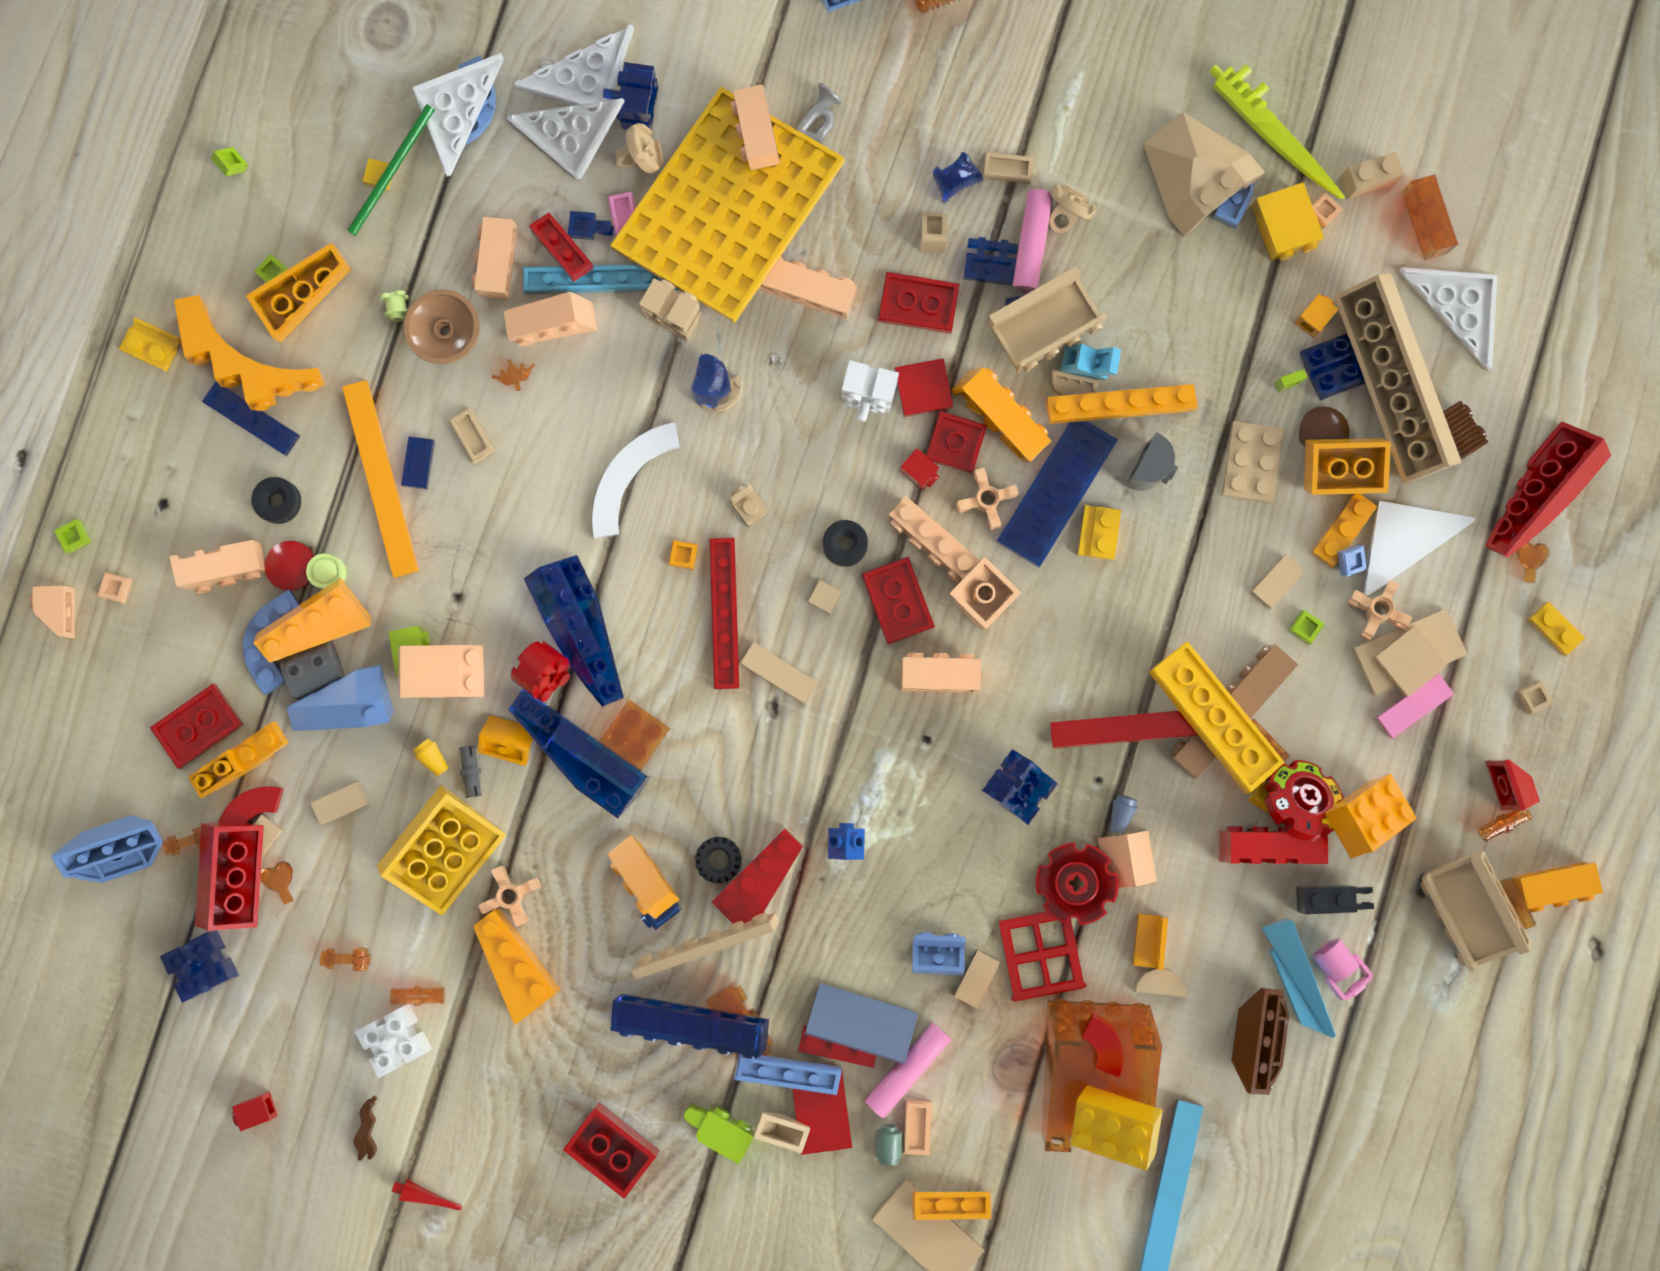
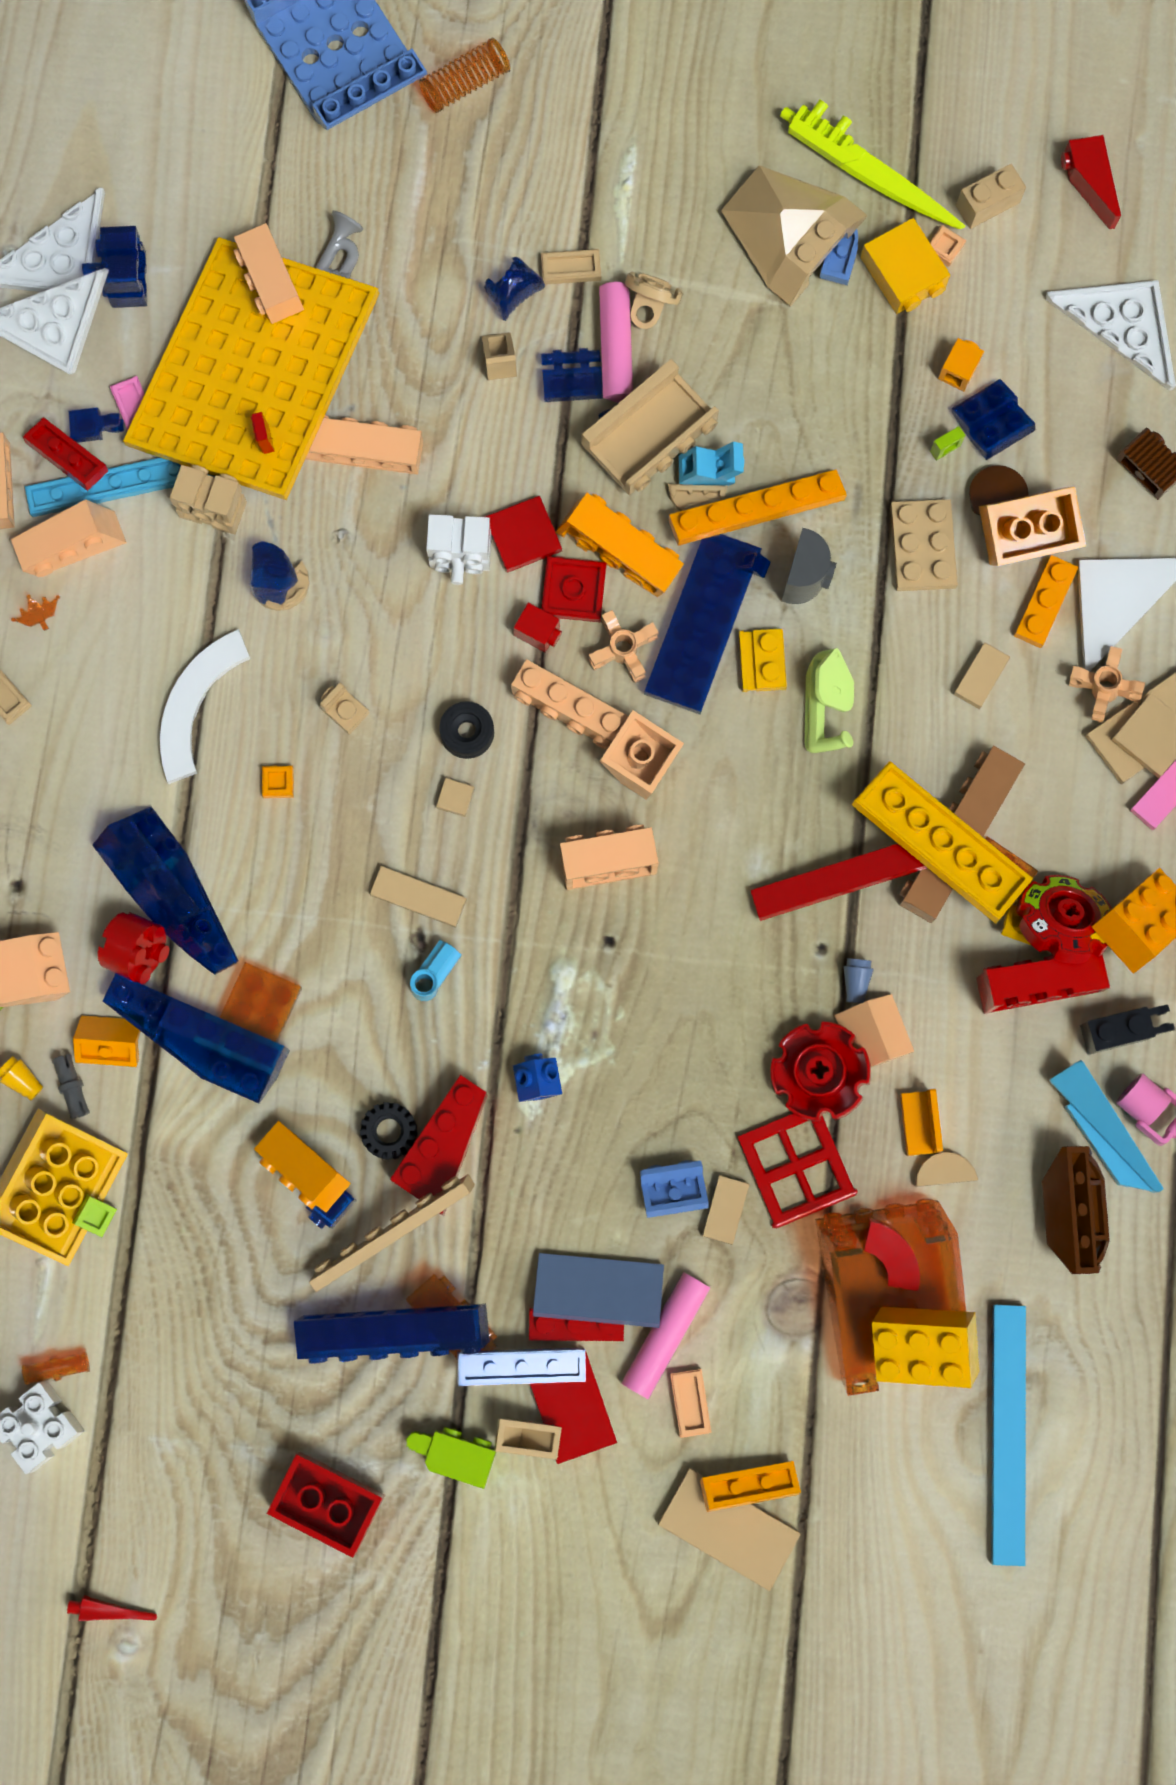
camera: 15 degrees left, 5 degrees down
(363, 1140) = (21, 1557): reddish brown hair -> none
(470, 880) = (94, 1215): none -> lime tile
(504, 883) = (137, 1212): light nougat pin -> none
(516, 968) = (171, 1312): light orange wedge -> none
(640, 150) = (137, 326): tan tile -> none
(724, 613) = (340, 841): red tile -> none
(725, 264) = (262, 433): none -> red tile
(782, 735) = (436, 969): none -> medium azure piece
(888, 1144) = (660, 1429): sand green brick -> none
(898, 600) = (542, 785): red tile -> none
(918, 302) = (498, 438): red tile -> none
(1019, 786) = (729, 969): clear blue brick -> none
(1109, 451) = (754, 563): none -> clear blue piece
(1149, 566) = (830, 686): none -> yellowish green piece
(1306, 627) = (1026, 721): lime tile -> none
(1352, 560) = (1062, 633): medium blue tile -> none
(1397, 378) = (1068, 416): tan brick -> none
(1429, 217) = (1066, 230): clear orange brick -> none
(1461, 175) = (1092, 176): none -> red slope

